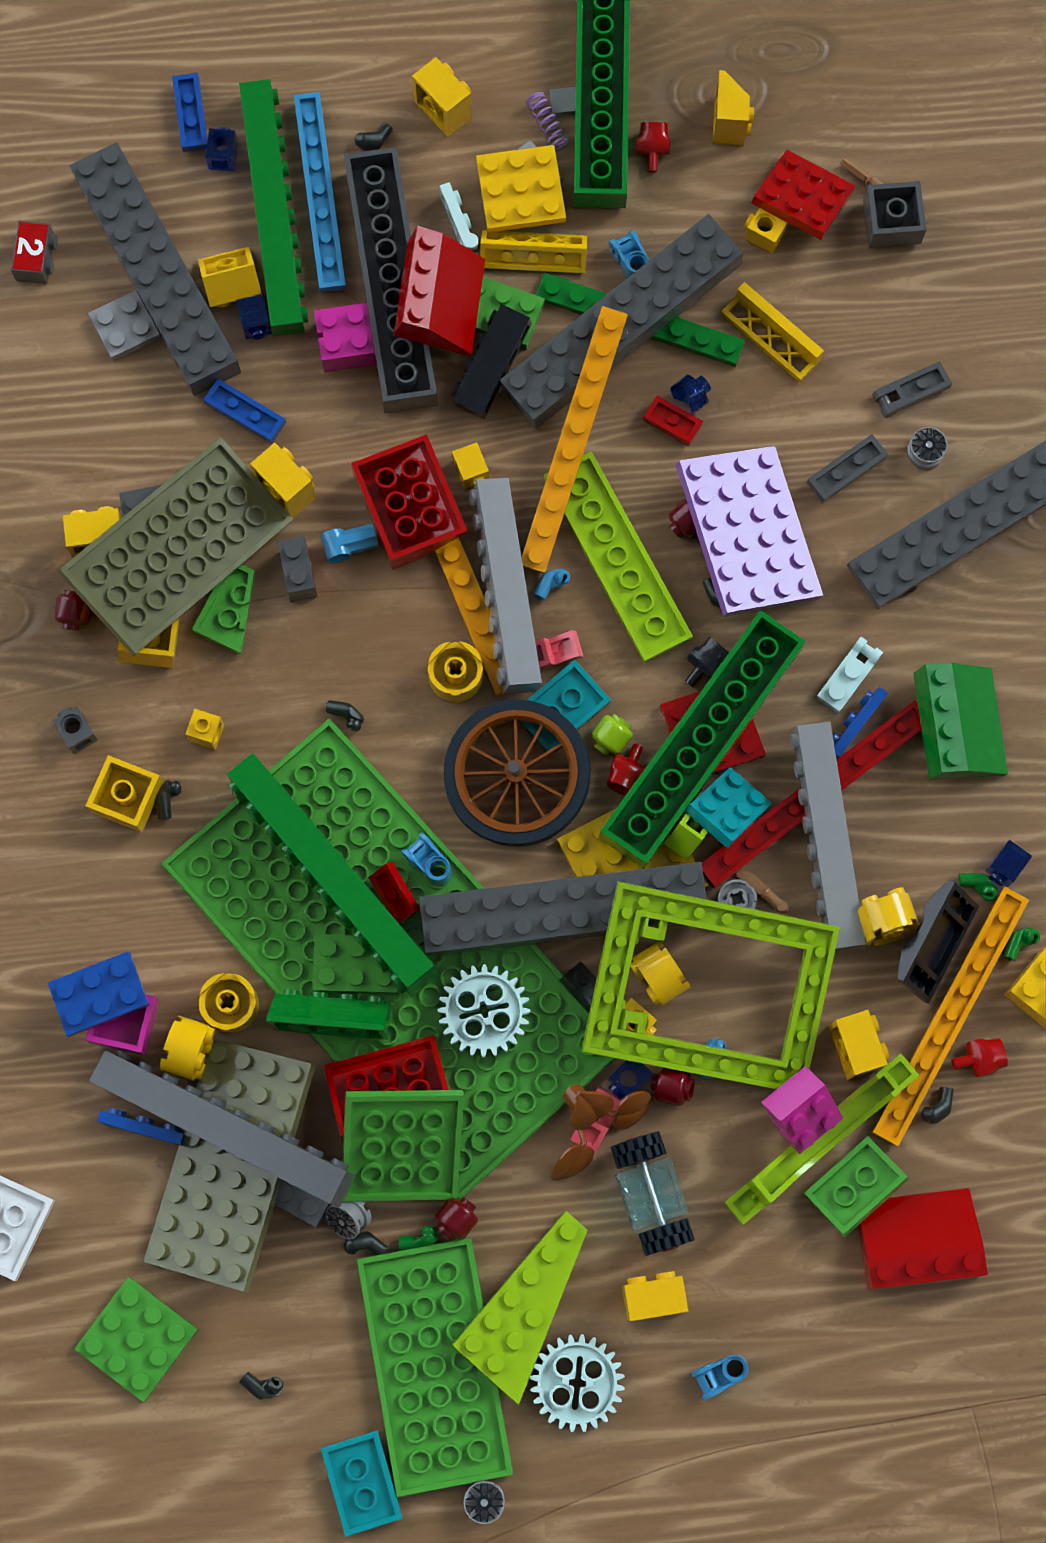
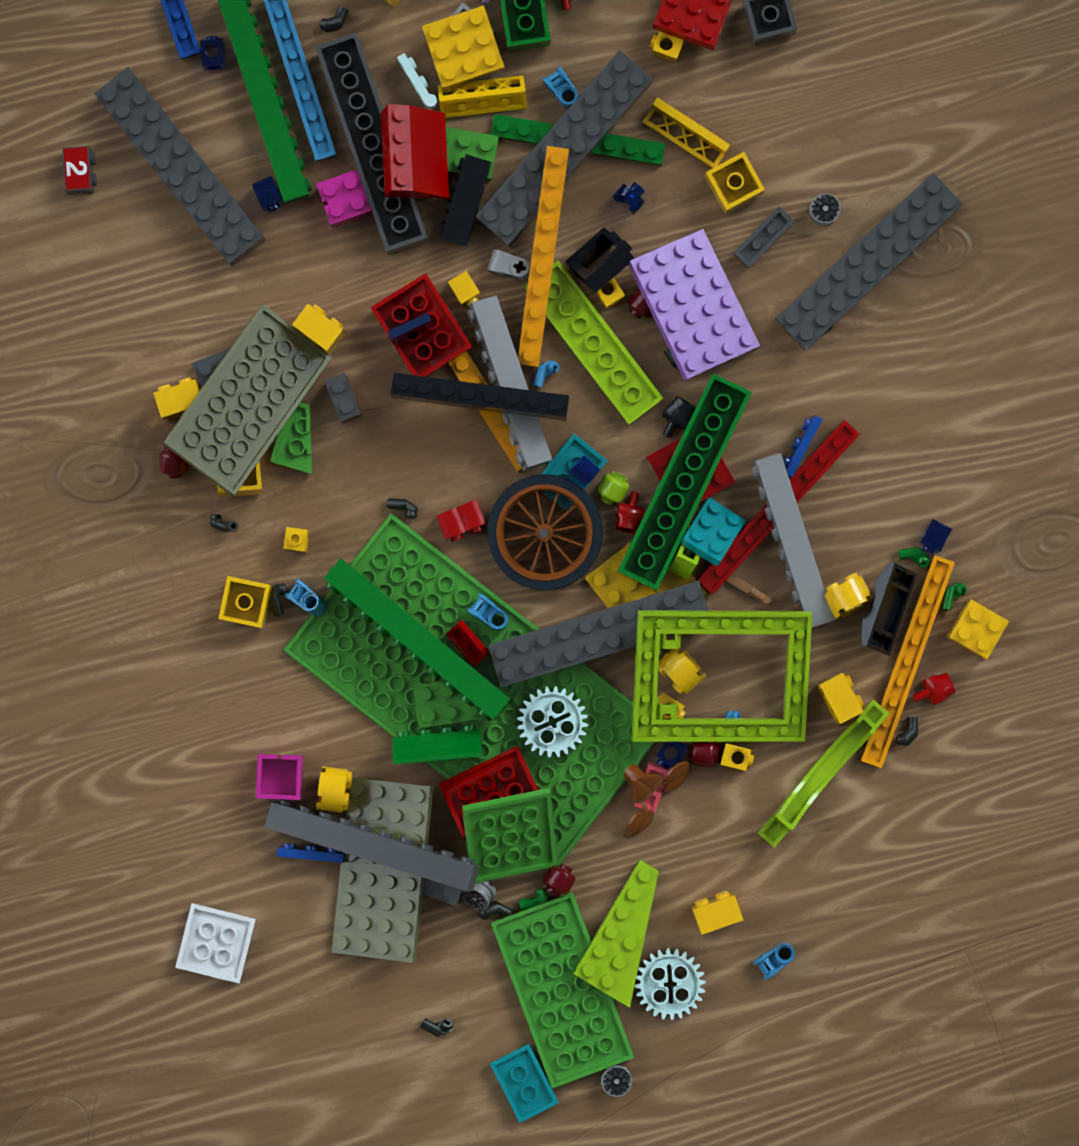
camera: 10 degrees left, 10 degrees up
(80, 739) = (203, 562): dark grey brick -> none
(98, 994) = (259, 762): blue plate -> none
(121, 699) = (225, 526): none -> pearl dark grey arm
(124, 325) = (164, 218): light grey plate -> none
(136, 1339) = (337, 1009): bright green plate -> none
(200, 801) = (304, 597): none -> dark azure piece
(212, 1003) = (357, 762): yellow brick -> none
(229, 277) = (241, 162): yellow slope -> none
(244, 411) = (275, 274): blue plate -> none
(341, 544) = (374, 370): dark azure piece -> none
(394, 490) = (410, 328): none -> dark blue tile
(415, 741) = (461, 520): none -> red brick
(455, 656) = (495, 458): yellow brick -> none
(465, 587) = (480, 396): none -> black brick
(527, 446) = (505, 263): none -> light grey piece
(558, 650) = (557, 429): coral slope -> none
(579, 704) = (584, 471): none -> clear blue brick
(580, 984) = (622, 687): pearl dark grey plate -> none
(643, 456) = (605, 269): none -> black window
(646, 509) = (615, 297): none -> yellow brick
(652, 1193) = (702, 836): plate -> none
(673, 420) = (618, 221): red plate -> none
(699, 1099) = (726, 758): none -> yellow brick
(738, 893) = (730, 599): light grey wheel -> none
(802, 1110) = (805, 755): dark pink piece -> none
(822, 396) = (734, 182): none -> yellow brick
(848, 676) = (790, 407): light aqua plate -> none
(856, 1186) = (854, 804): bright green plate -> none
(912, 389) = (806, 161): dark grey plate -> none
(922, 1240) = (908, 834): red slope -> none
(959, 721) = (882, 430): green slope -> none

